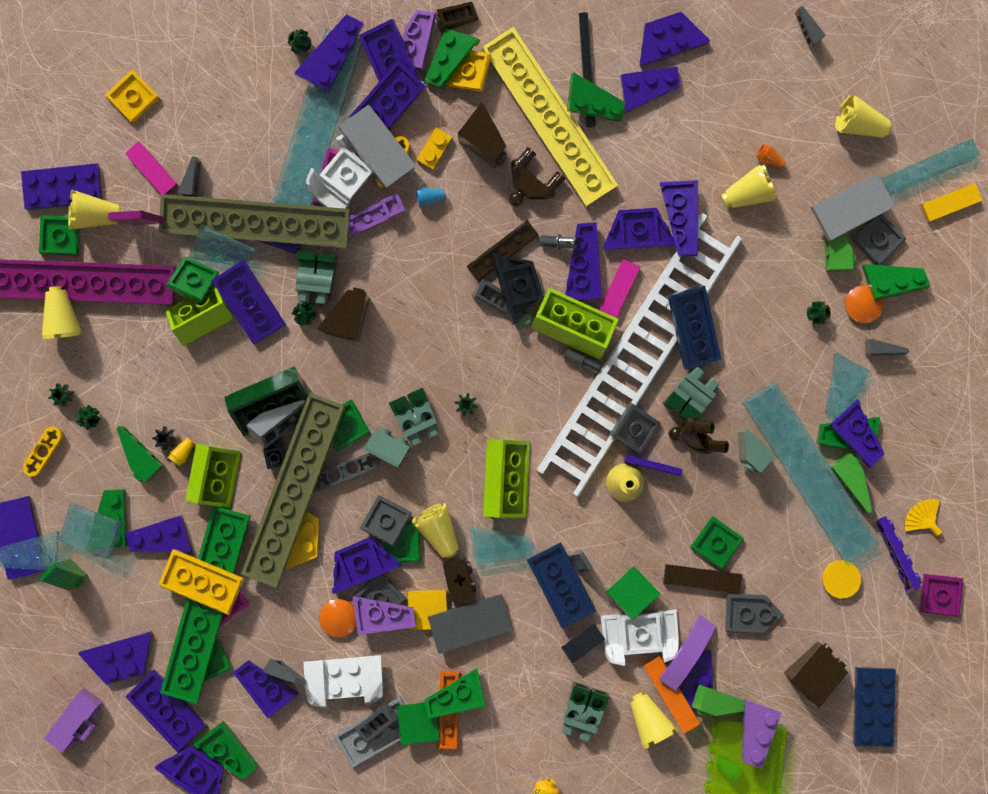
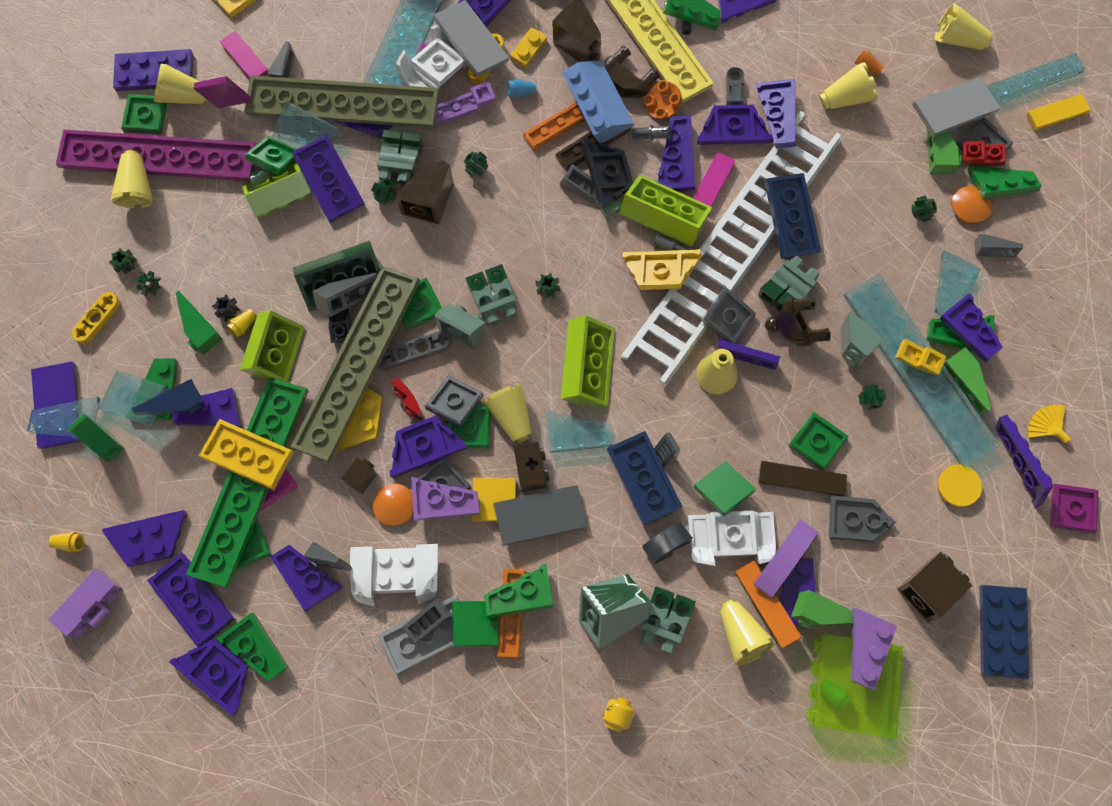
camera: 10 degrees right, 15 degrees down
(51, 666) = (68, 542): none -> yellow cone
(130, 538) = (177, 400): none -> dark blue slope
(181, 303) = (259, 176): none -> sand green tile
(305, 594) = (359, 475): none -> dark brown brick
(347, 526) = (410, 403): none -> red slope
(390, 281) = (475, 163): none -> dark green gear
(470, 231) = (554, 126): none -> orange tile
(506, 211) = (598, 99): none -> medium blue slope
(537, 707) = (612, 609): none -> sand green slope
(569, 205) = (663, 100): none -> orange dish
(571, 384) = (661, 268): none -> yellow wing
(638, 188) = (734, 89): none -> dark grey piece
(765, 501) = (872, 397): none -> dark green gear
(810, 464) = (920, 358): none -> yellow slope
(877, 253) = (980, 154): none -> red slope

